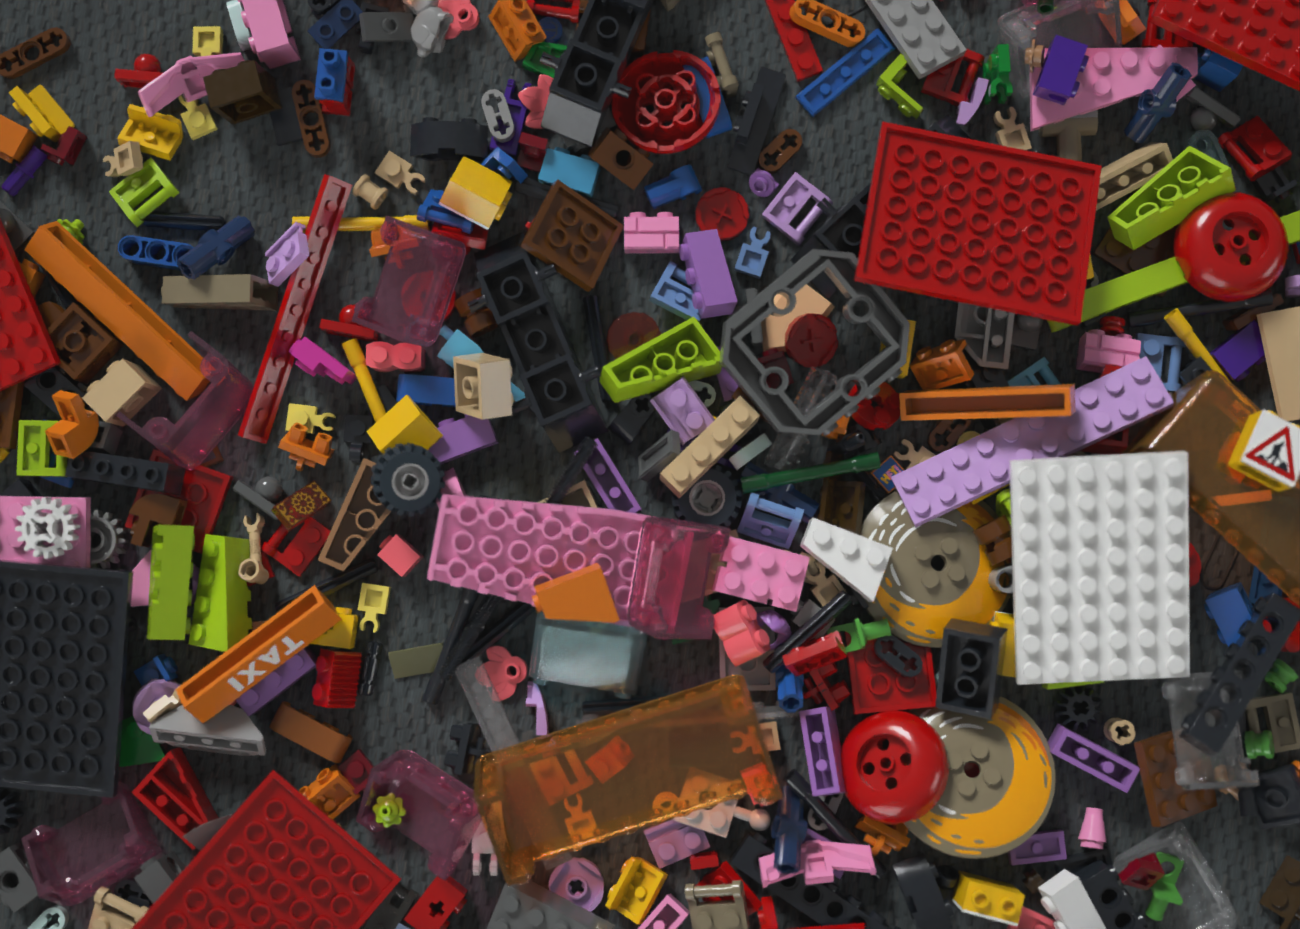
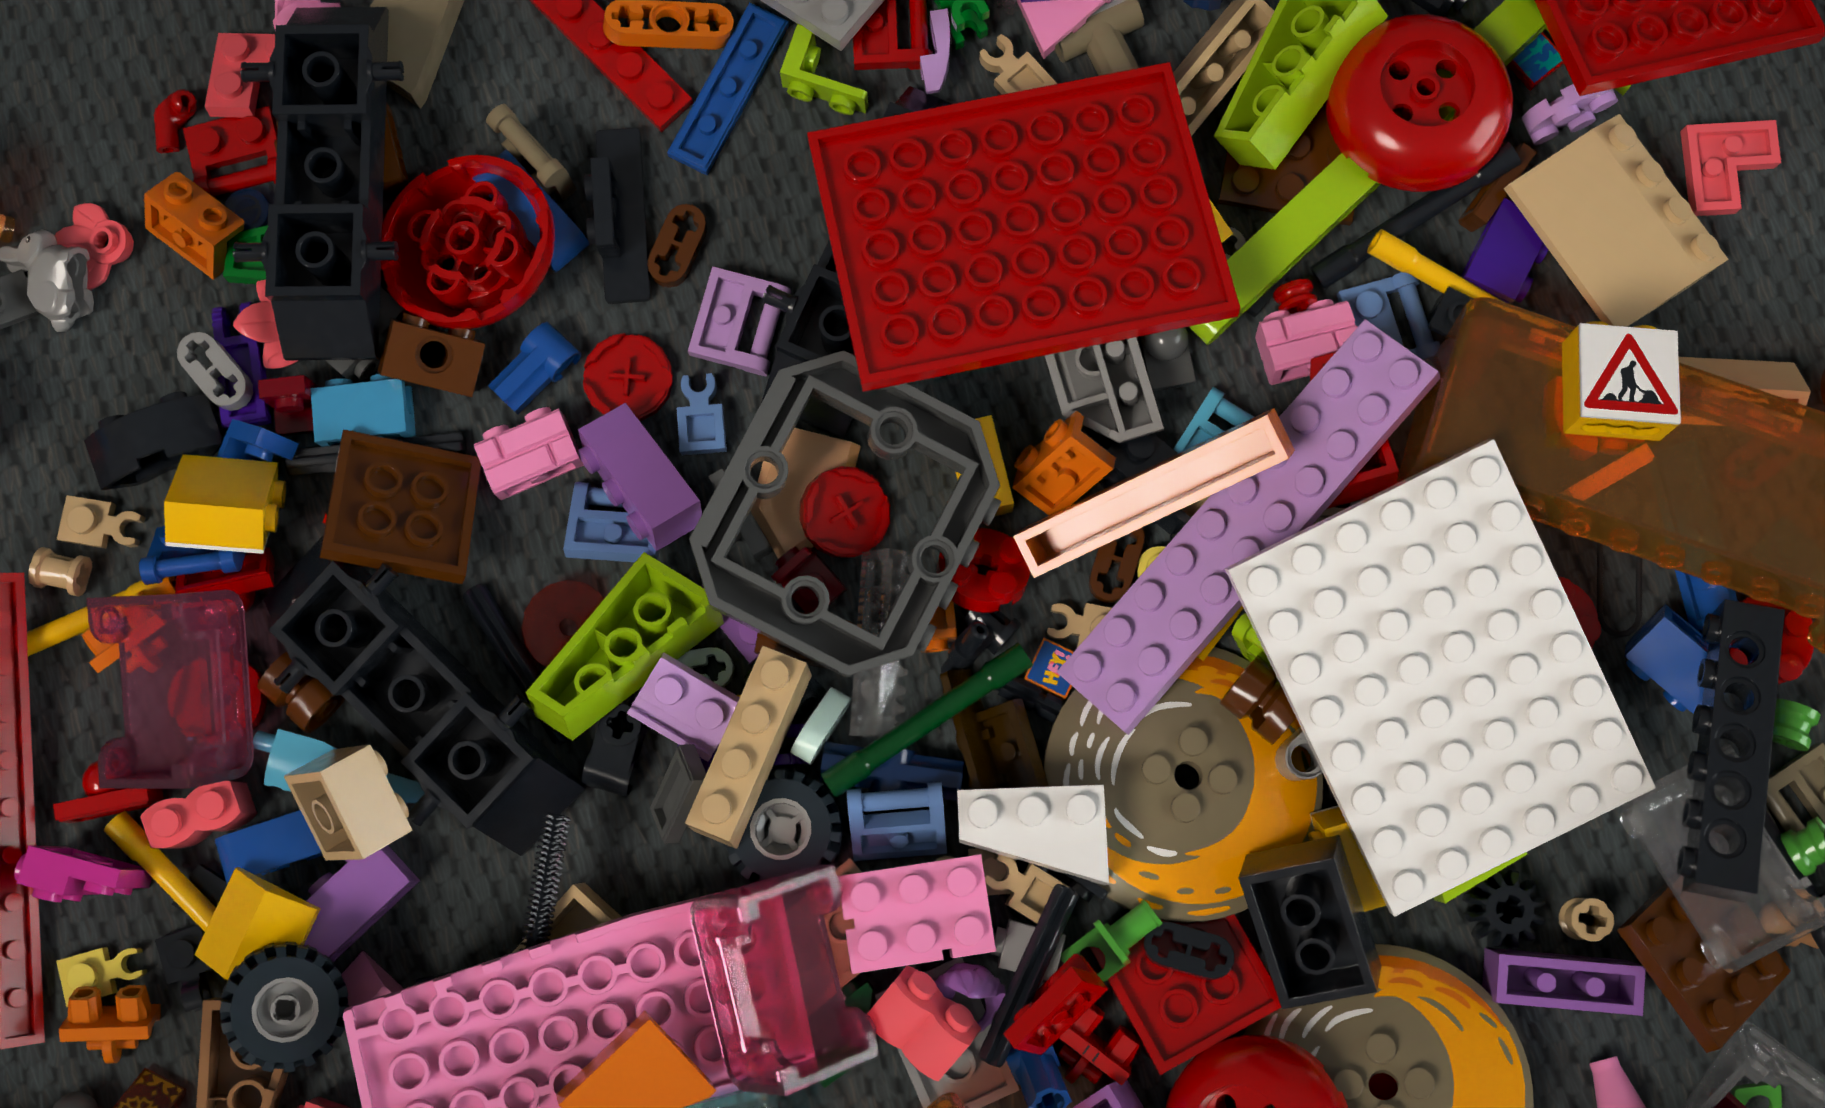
camera: 20 degrees left, 5 degrees down
(609, 481) = (616, 867): medium lavender brick -> none
(762, 183) = (670, 304): medium lavender plate -> none

